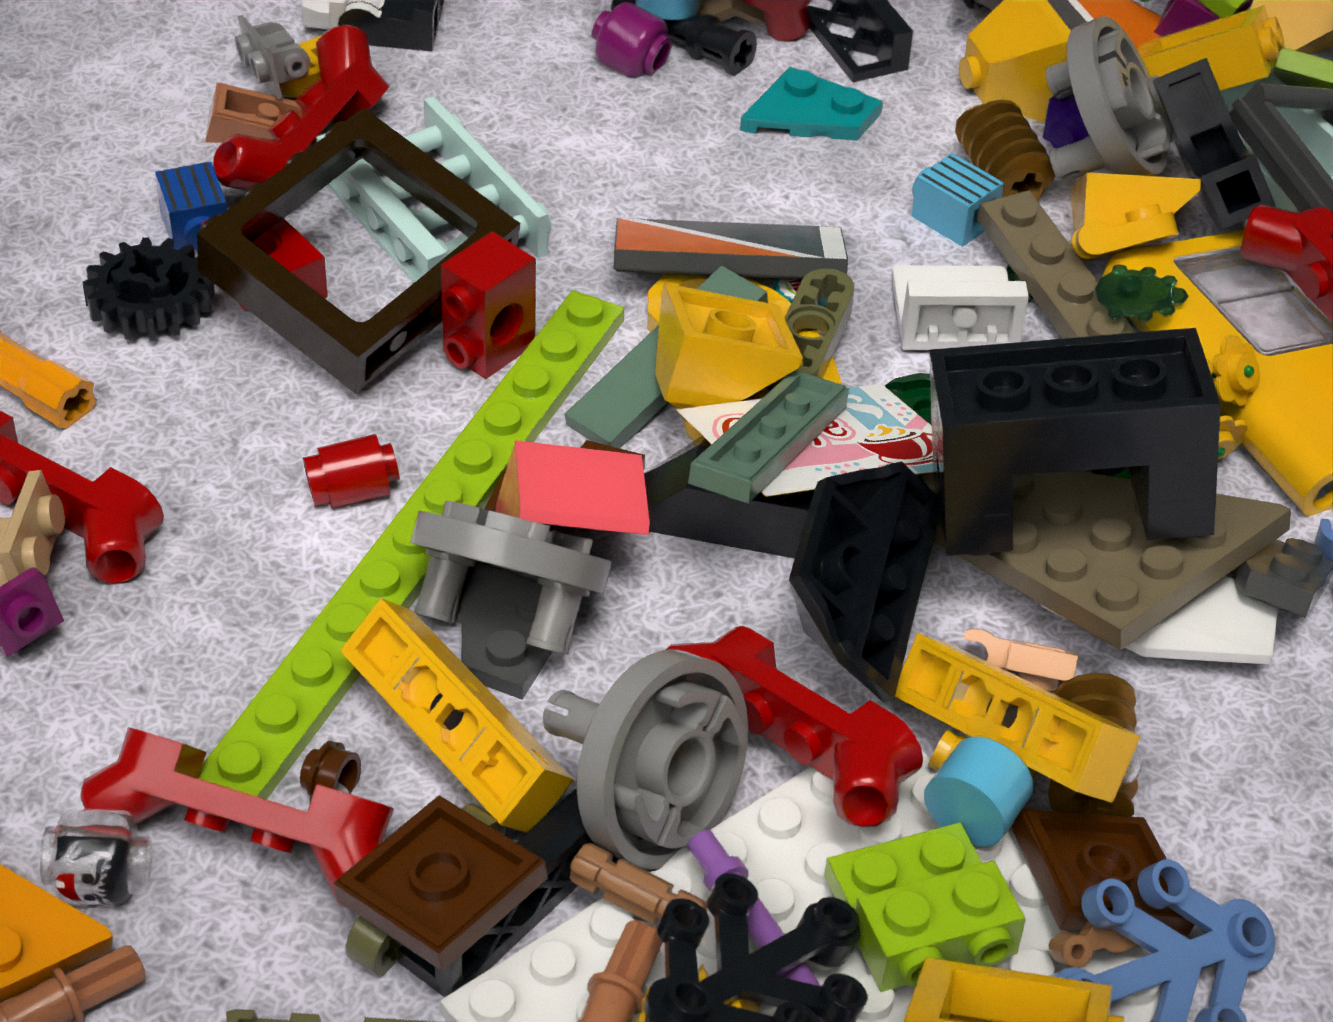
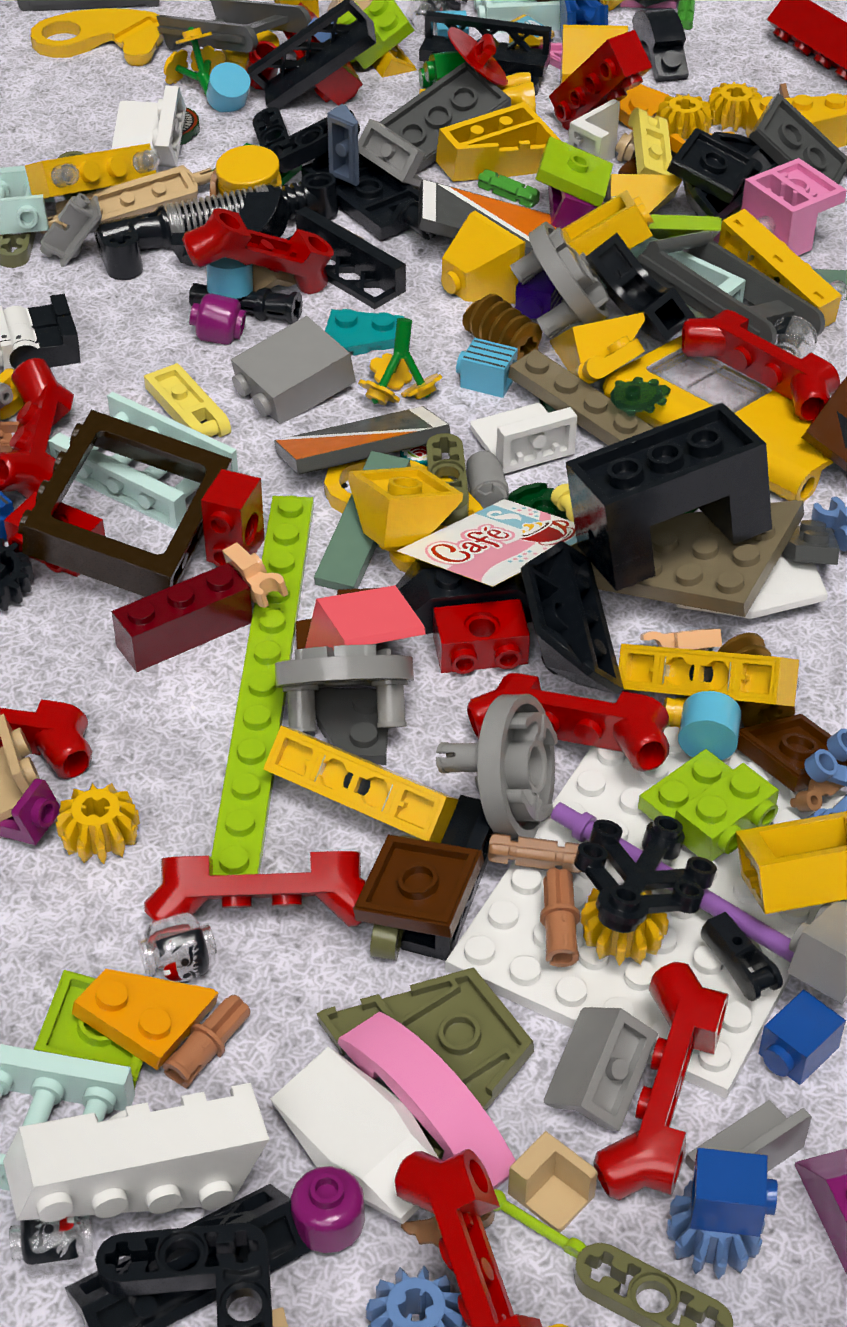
camera: 20 degrees left, 0 degrees up
(97, 652) = (97, 822): none -> yellow gear
(329, 766) = (295, 849): reddish brown plate -> none
(351, 471) = (196, 655): red brick -> none
(399, 403) = (182, 617): none -> dark red brick
(471, 386) = (254, 574): none -> light nougat plate
(531, 138) = (186, 401): none -> light yellow plate
(686, 133) = (293, 370): none -> light grey brick
(734, 562) = (481, 636): none -> red brick
(768, 436) = (470, 549): sand green tile -> none
(828, 170) = (394, 371): none -> yellow plant
(870, 349) = (486, 478): none -> light grey piece

